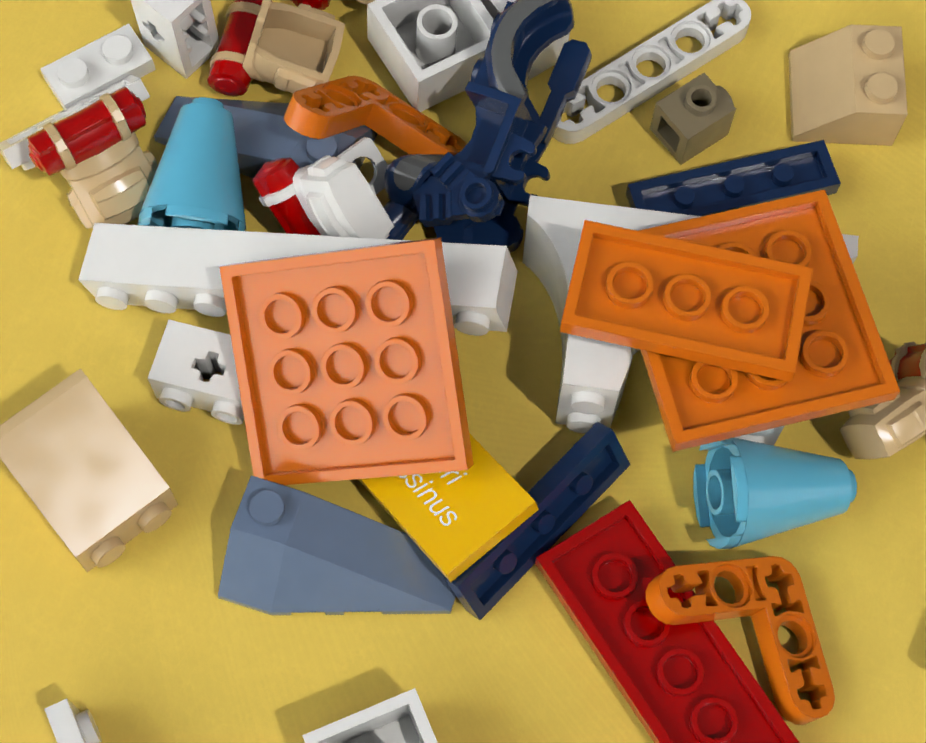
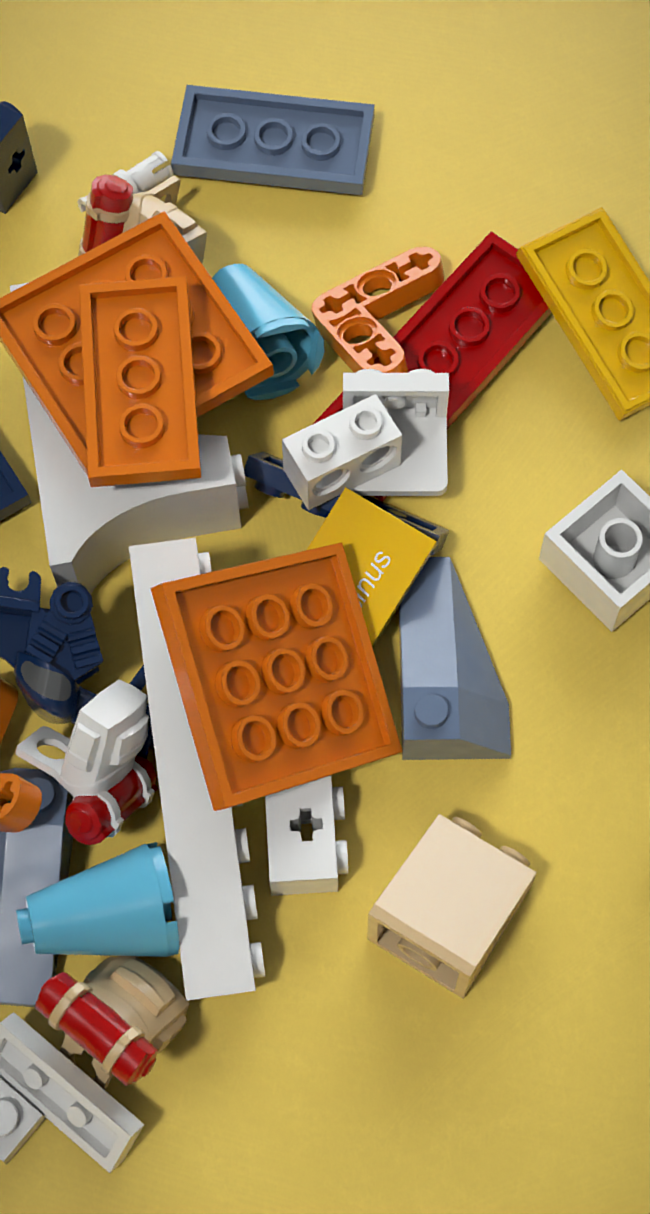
camera: 105 degrees left, 0 degrees up
(573, 505) = (342, 451): none -> white brick
(586, 580) = (419, 410): none -> white bracket

